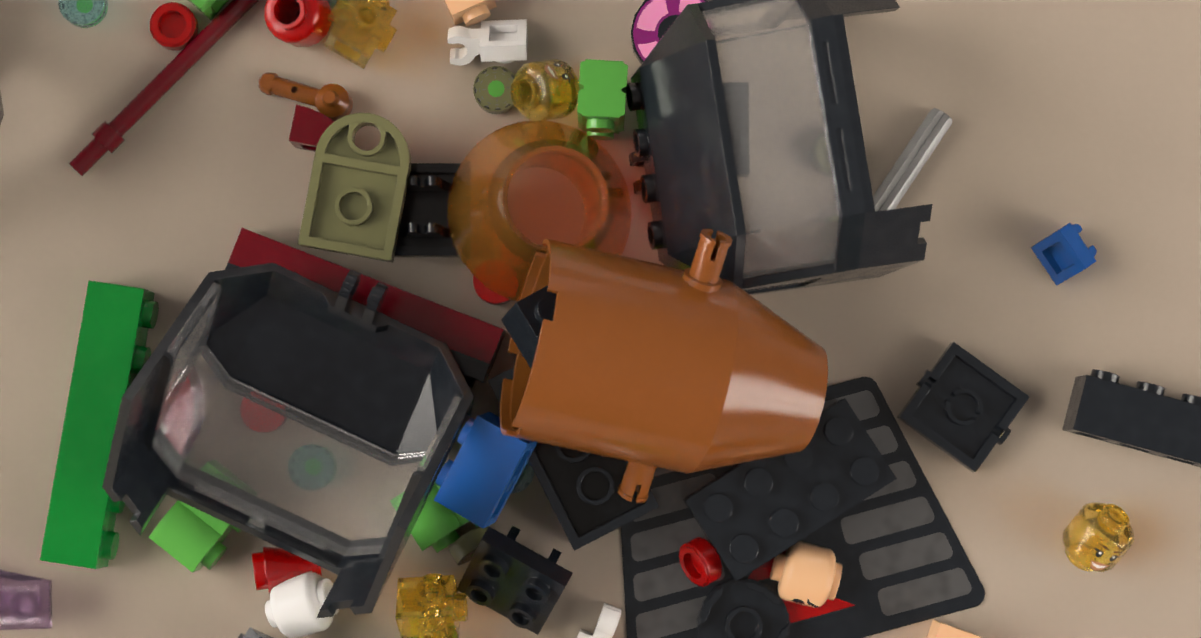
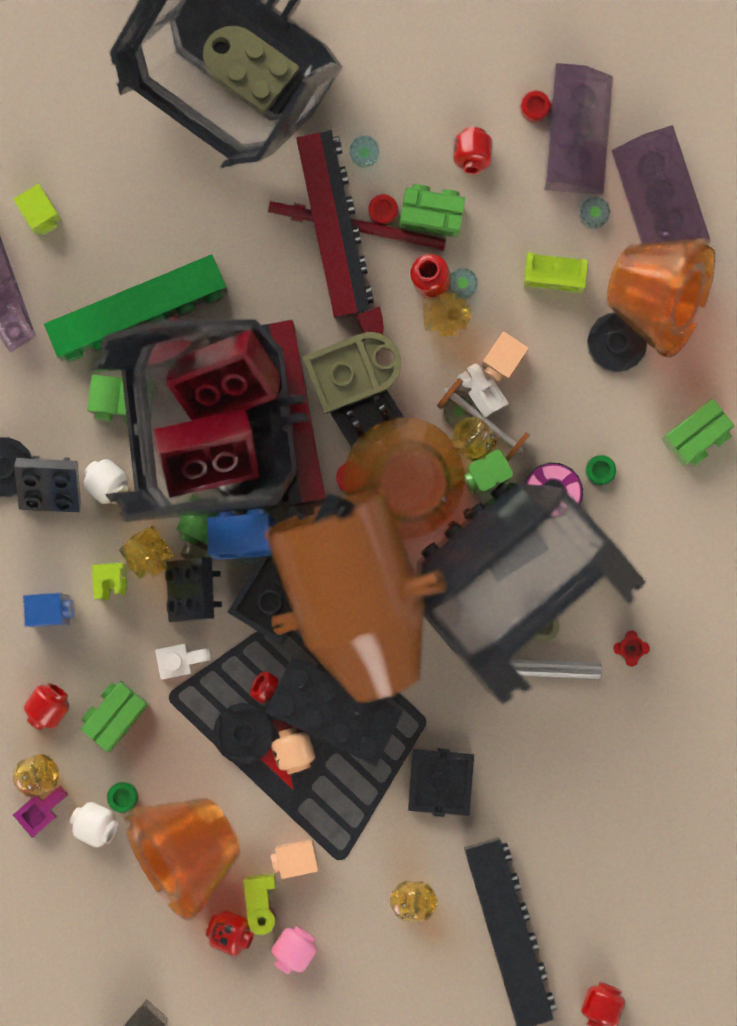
camera: 55 degrees right, 0 degrees up
(148, 97) = (333, 224): none -> dark red brick
(261, 364) = (223, 377): none -> dark red brick
(278, 565) = (118, 454): red cone -> none
(330, 100) = (394, 323): dark orange piece -> none
(346, 447) = (206, 453): none -> dark red brick
(589, 43) = (450, 394): none -> axle
(944, 46) = (640, 648): none -> red plate
(1064, 253) = (563, 787): blue tile -> none

